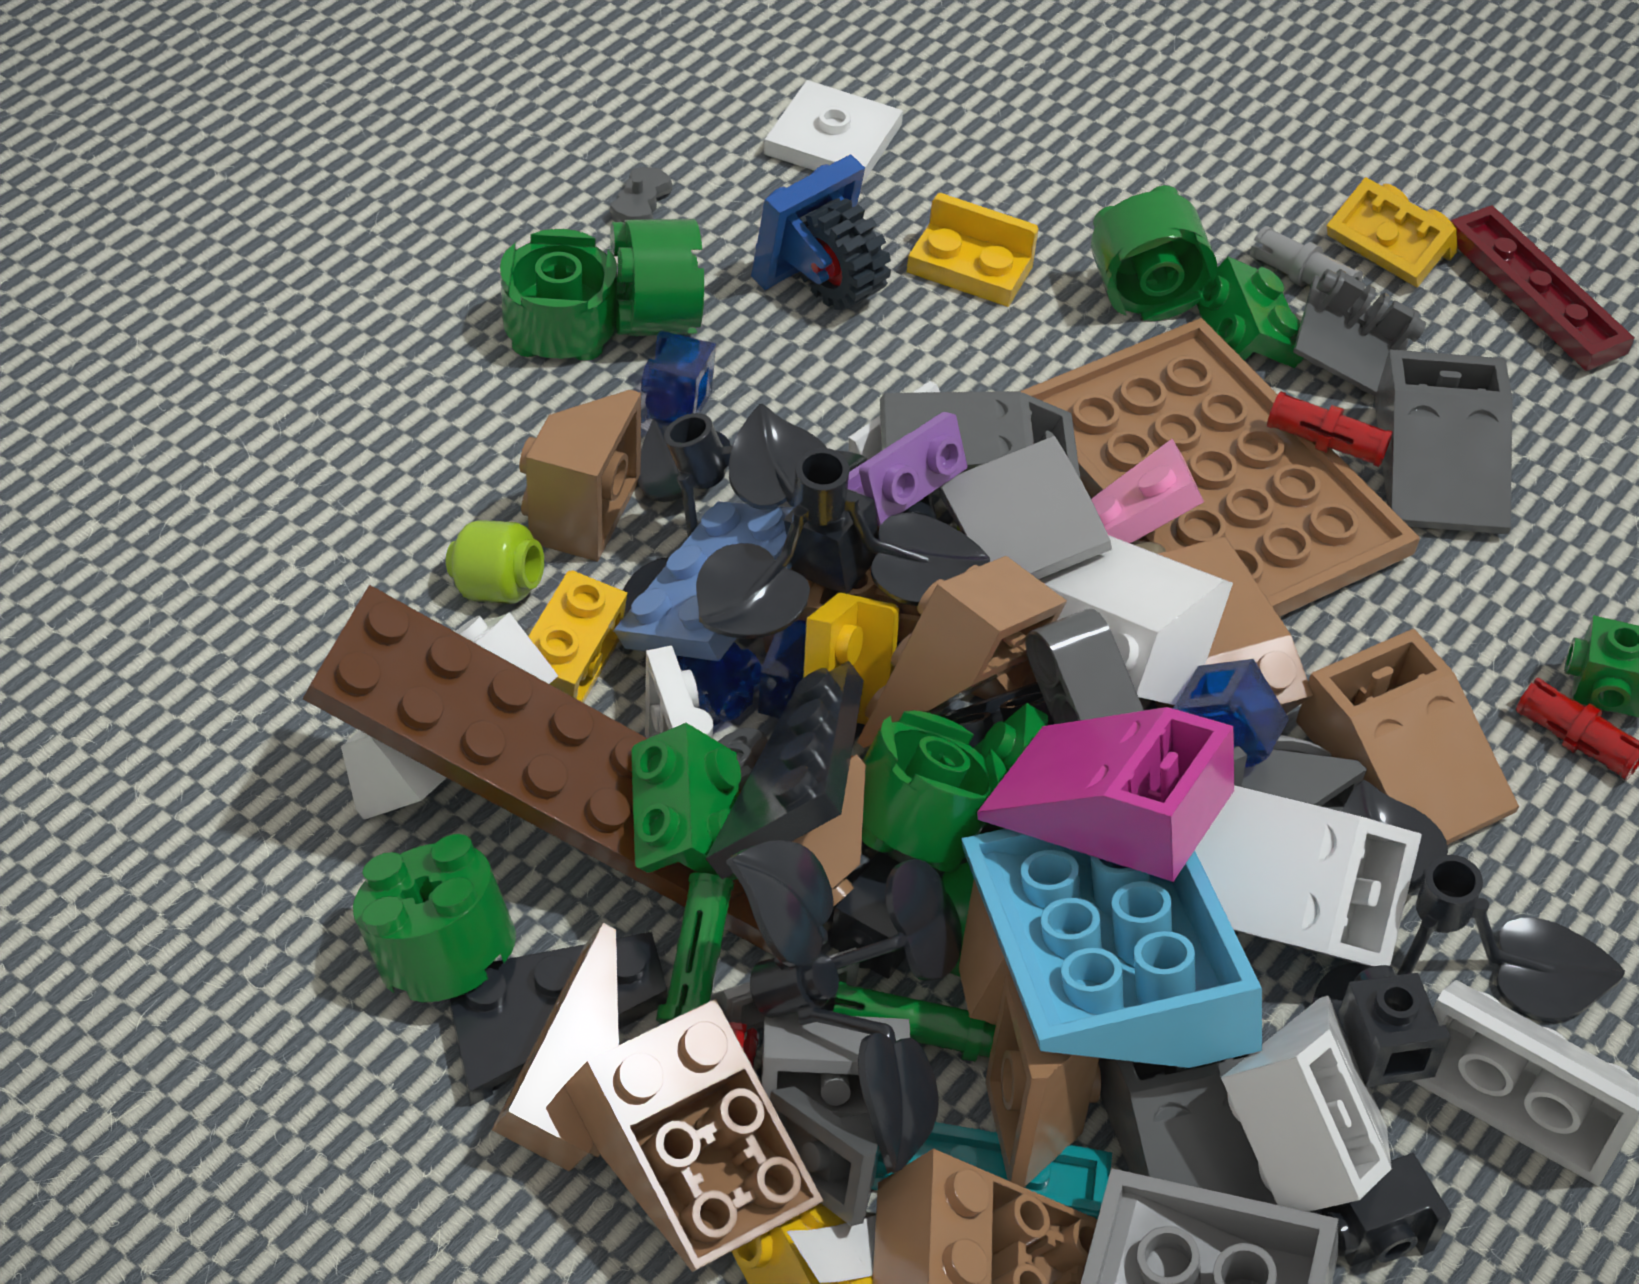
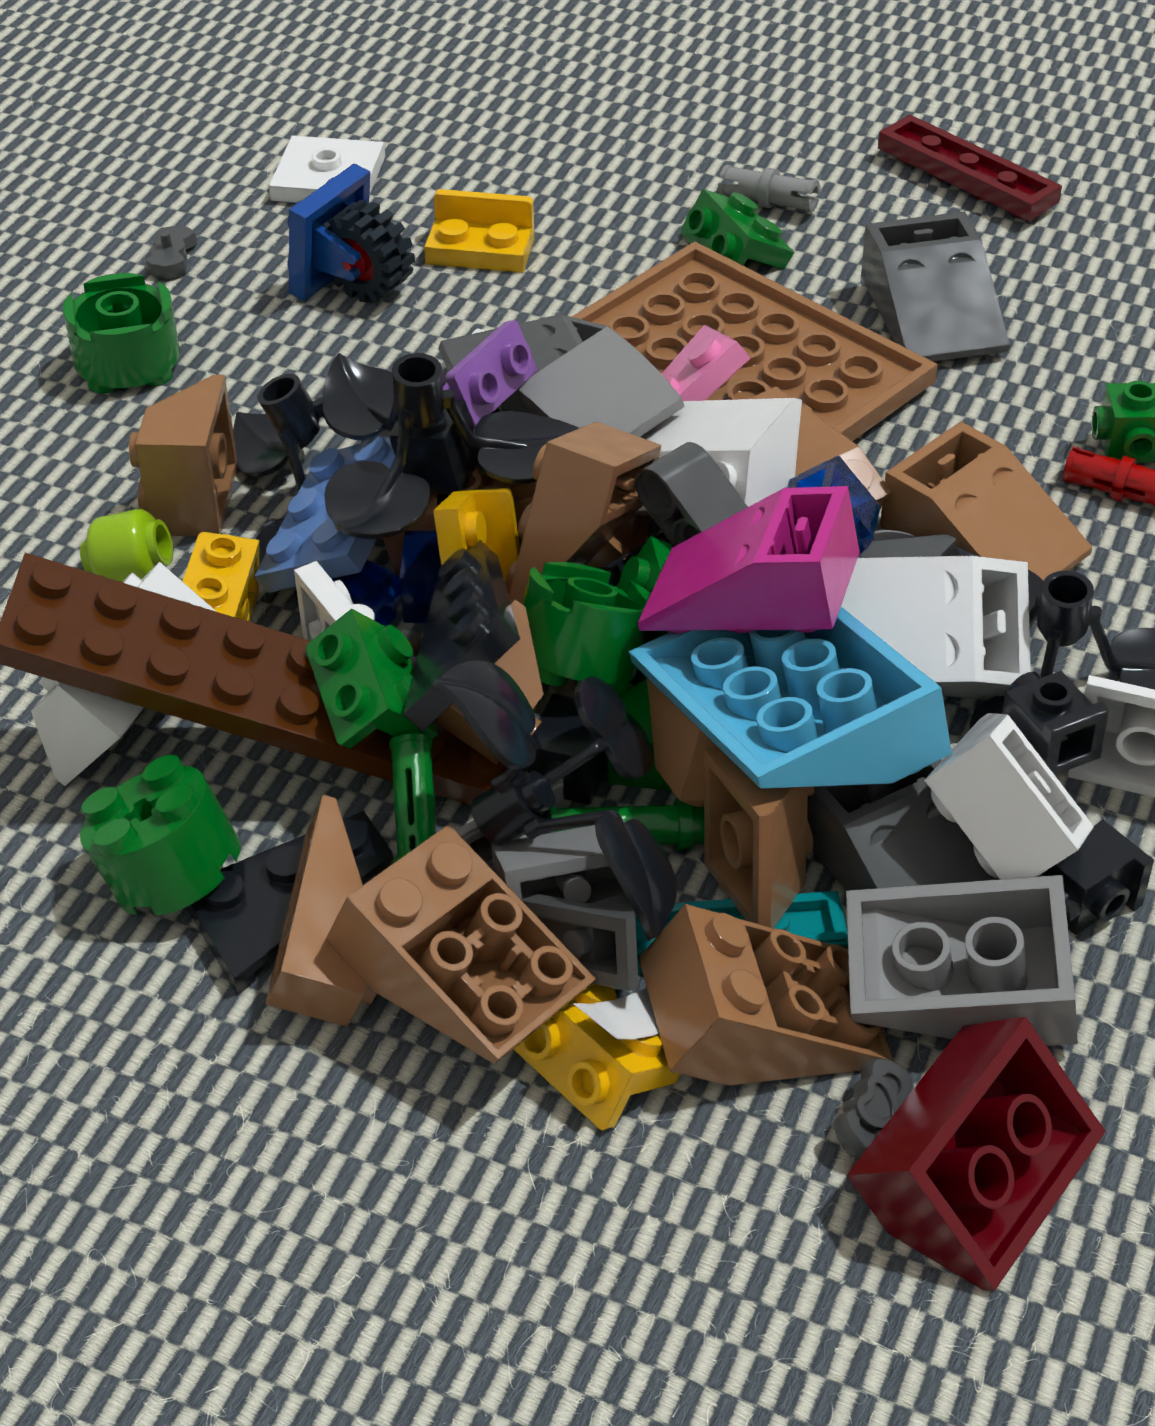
camera: 10 degrees left, 5 degrees down
(657, 276) = (209, 297): green brick -> none
(678, 377) = (247, 368): clear blue brick -> none
(1152, 254) = (638, 198): green brick -> none
(1329, 428) = (796, 294): red pin -> none
(1351, 335) = (824, 231): dark grey hinge -> none
(1393, 231) = (834, 149): yellow bracket -> none

